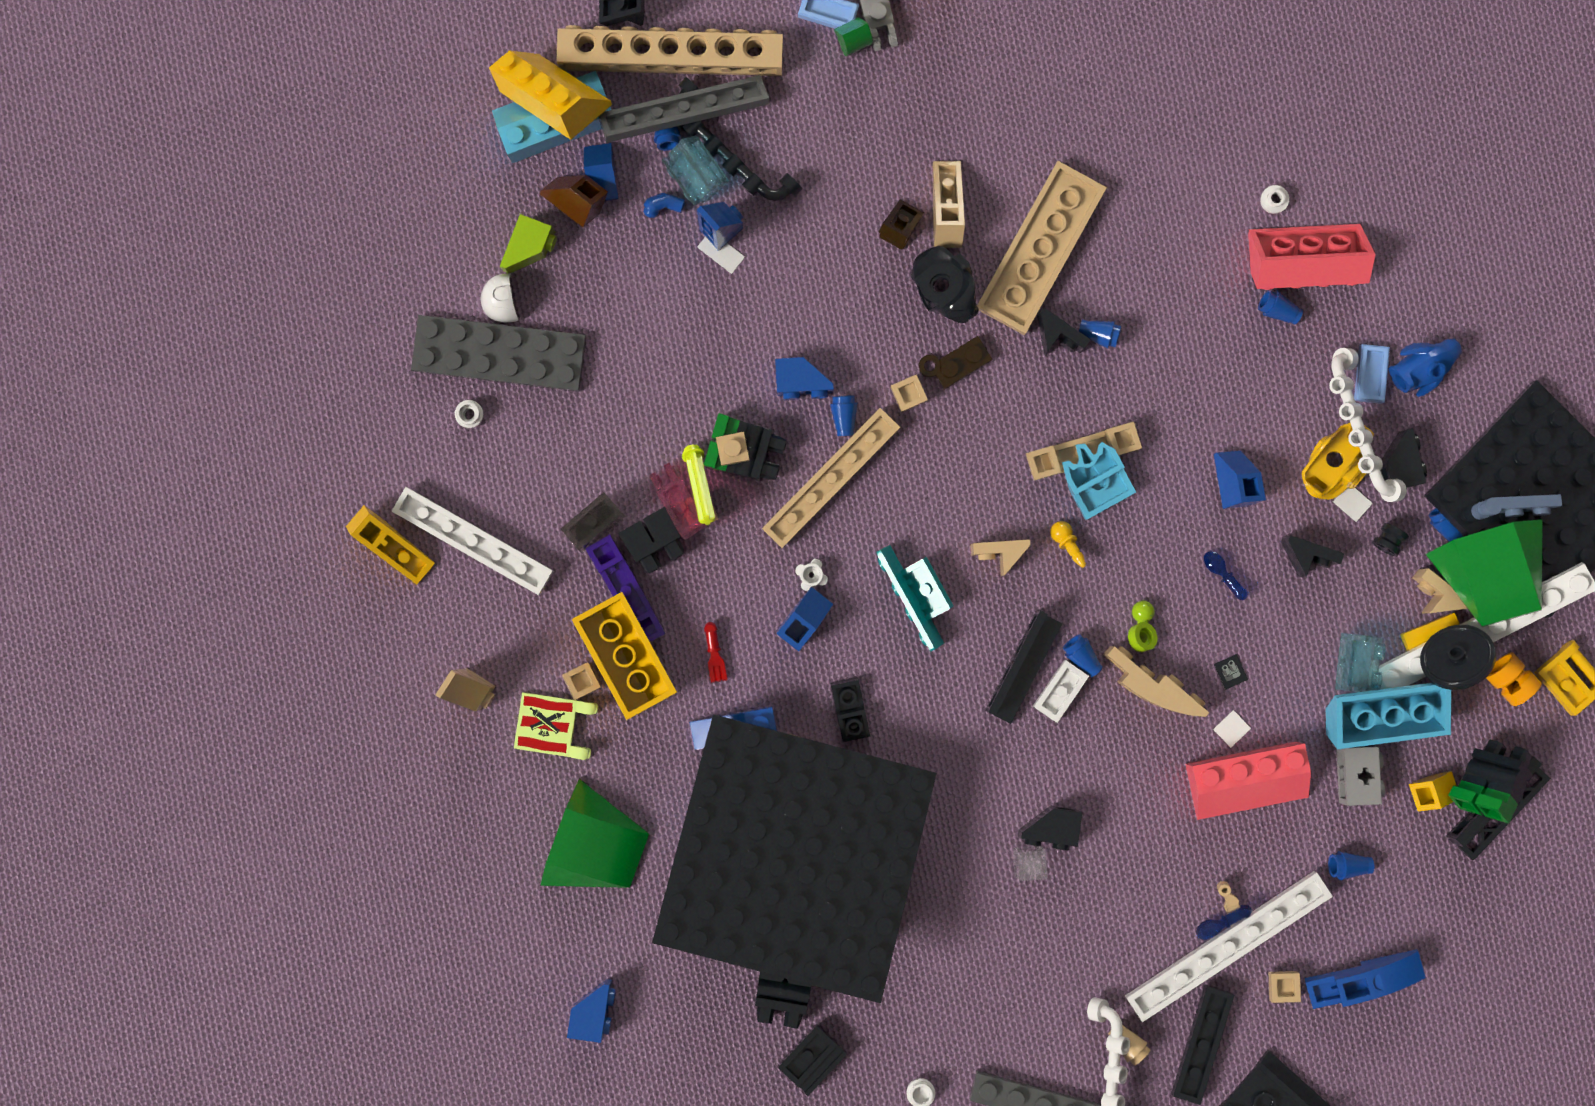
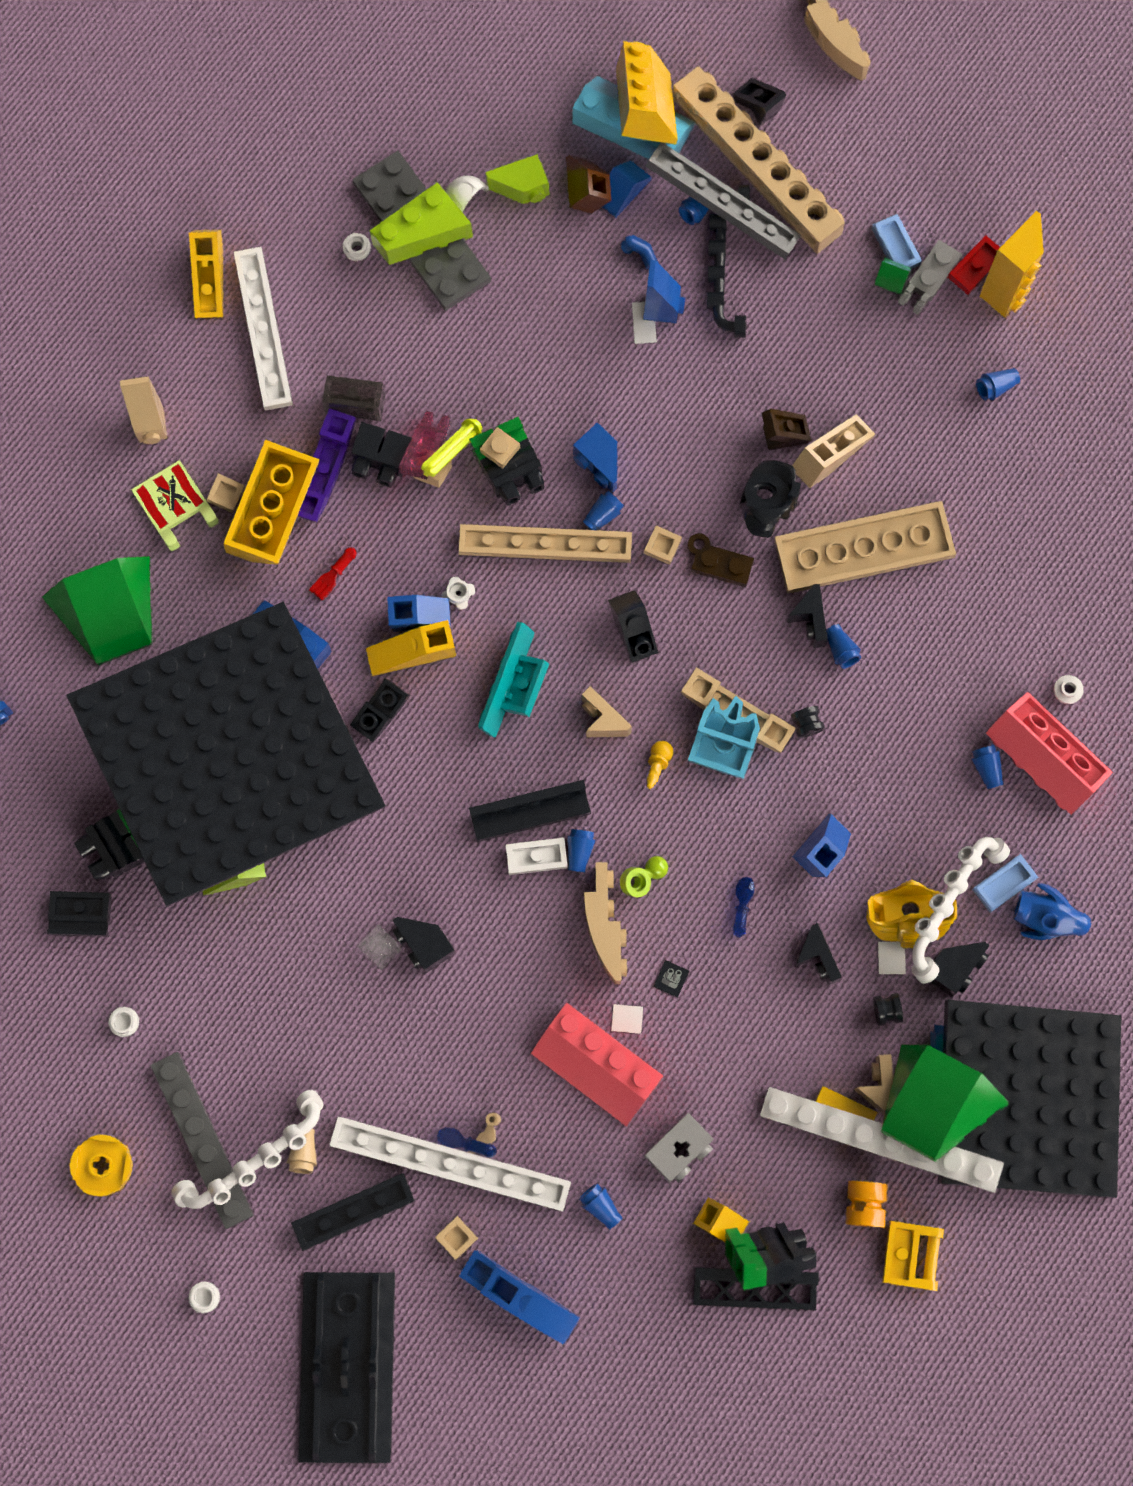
camera: 50 degrees right, 10 degrees down
(501, 352) = (421, 225): none -> lime wedge
(695, 170) = (686, 248): clear light blue hinge -> none
(826, 648) = (412, 648): none -> yellow slope
(951, 469) = (633, 625): none -> black slope
(1003, 37) = (996, 383): none -> blue cone
(1135, 408) = (808, 721): none -> black wheel
(1359, 663) = (766, 1067): clear light blue hinge -> none
(1388, 715) = (748, 1123): medium azure slope -> none
(1458, 657) = (838, 1130): black shield -> none
(1516, 506) = (1001, 1073): sand blue plate -> none

